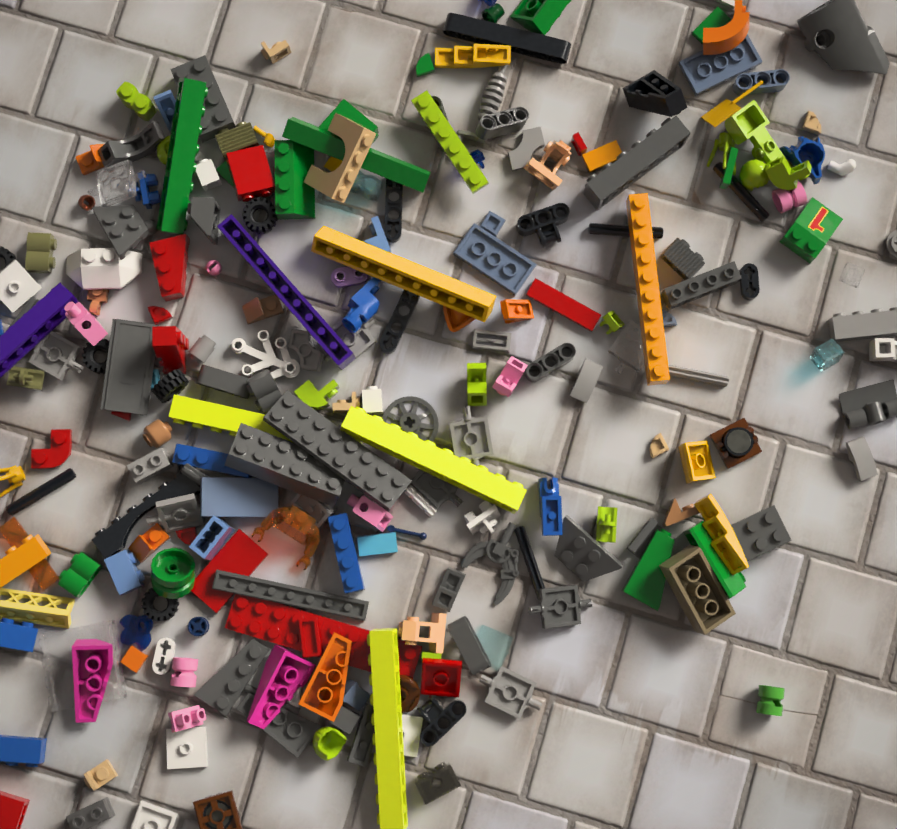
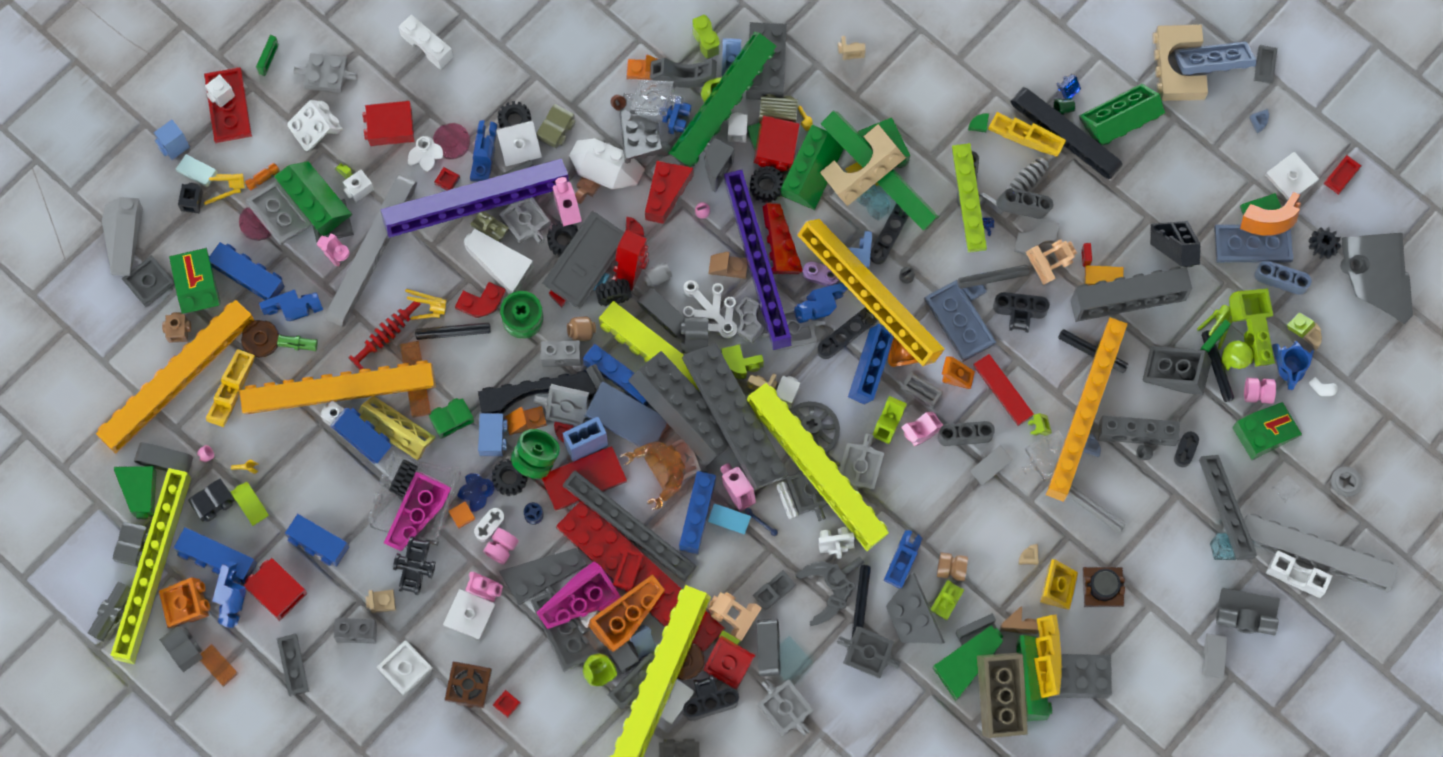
camera: 25 degrees right, 10 degrees down
(55, 406) = (501, 262): none -> white slope
(63, 655) = (403, 478): none -> black tyre
(85, 444) = (522, 314): none -> green wheel
(114, 730) = (414, 565): none -> black axle
(260, 812) = (506, 704): none -> red tile
(304, 269) = (782, 246): none -> red wing
(430, 242) = (909, 277): none -> dark grey hinge
(436, 340) = (871, 364): none -> blue brick
(505, 204) = (993, 276): none -> dark grey axle
(596, 491) = (952, 566): none -> medium nougat wheel
(682, 259) = (1133, 399): dark grey brick -> none
(708, 212) = (1178, 369): none -> dark grey slope
(714, 299) = (1144, 452): none -> dark grey hinge
(726, 108) = (1240, 284): yellow piece -> none
(779, 26) = (1322, 249): none -> black gear
(784, 176) = (1261, 367): lime brick -> none
(796, 118) = (1300, 325): none -> lime plate
(812, 319) = (1227, 507): none -> dark grey plate

